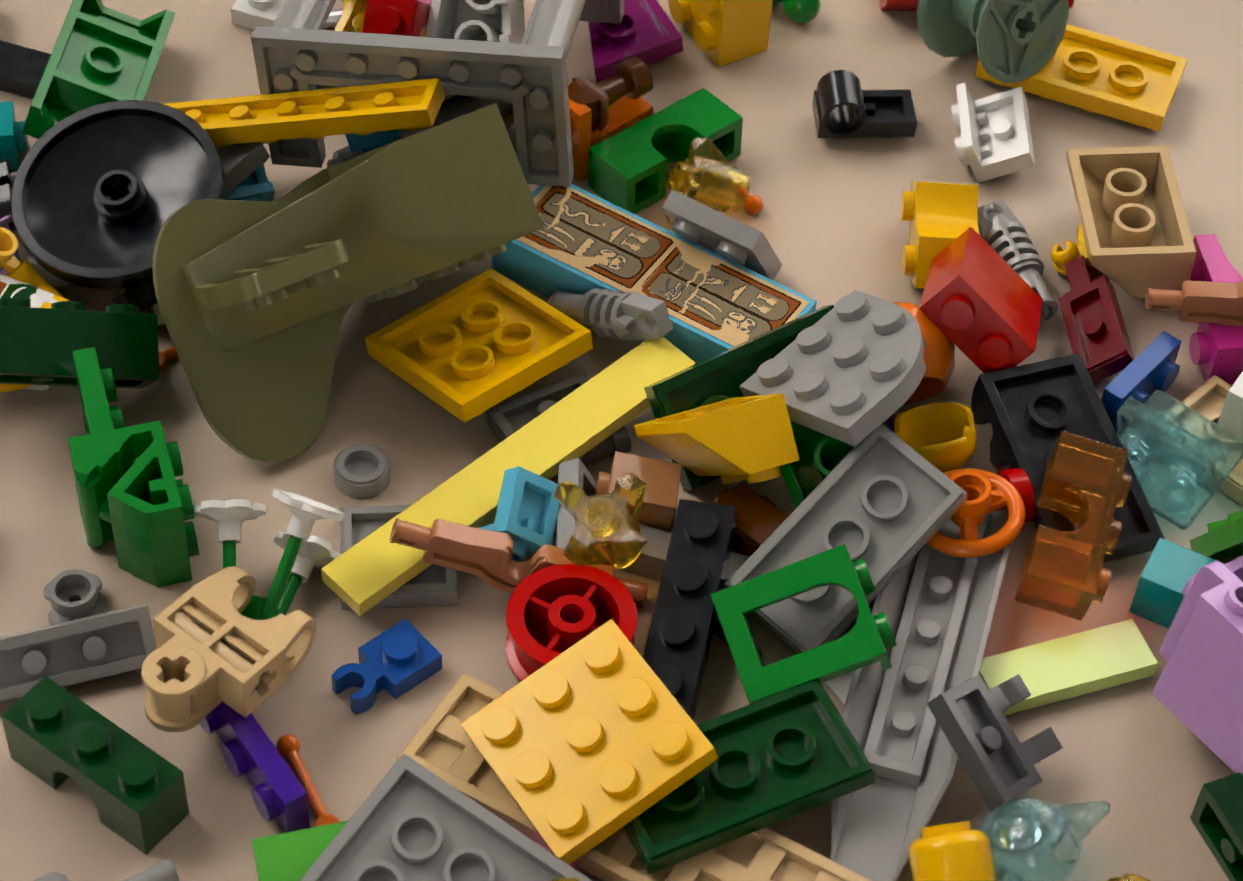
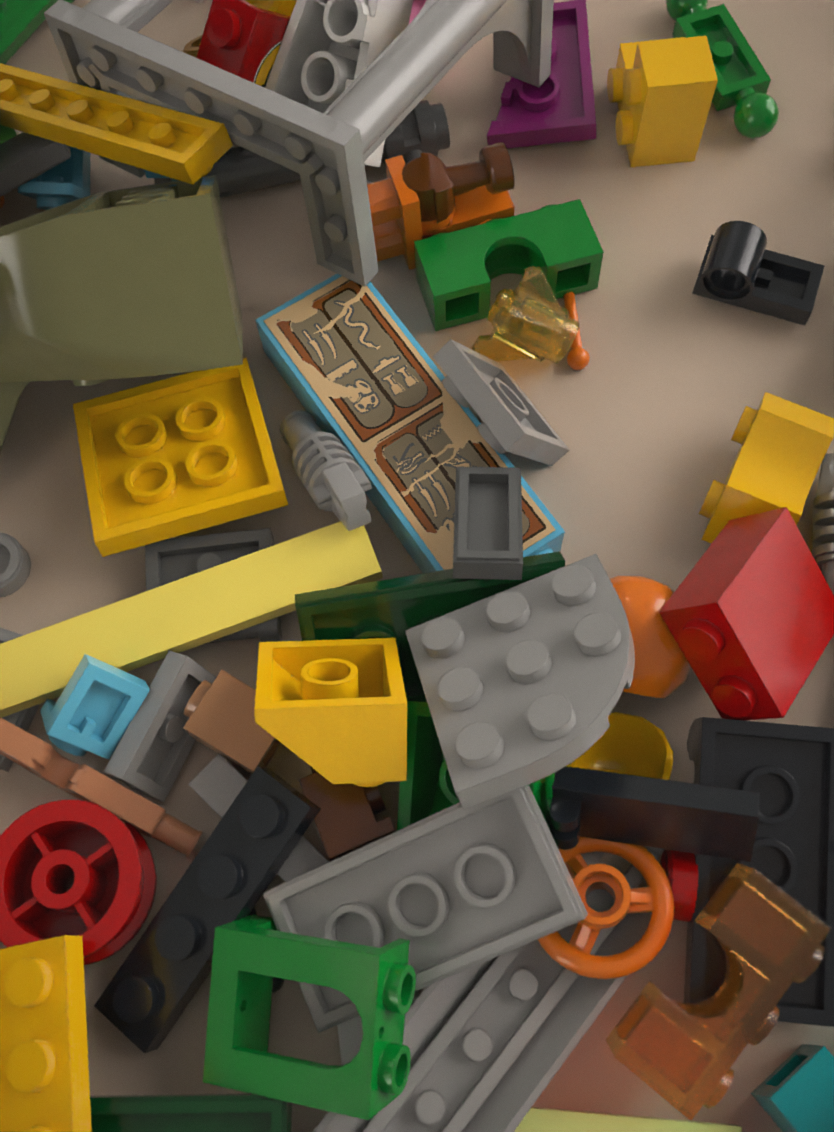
camera: 30 degrees right, 20 degrees up
(604, 523) = (150, 775): clear yellow rock -> none
(762, 299) = (488, 523): none -> dark grey tile
(983, 431) = (653, 813): none -> black hinge

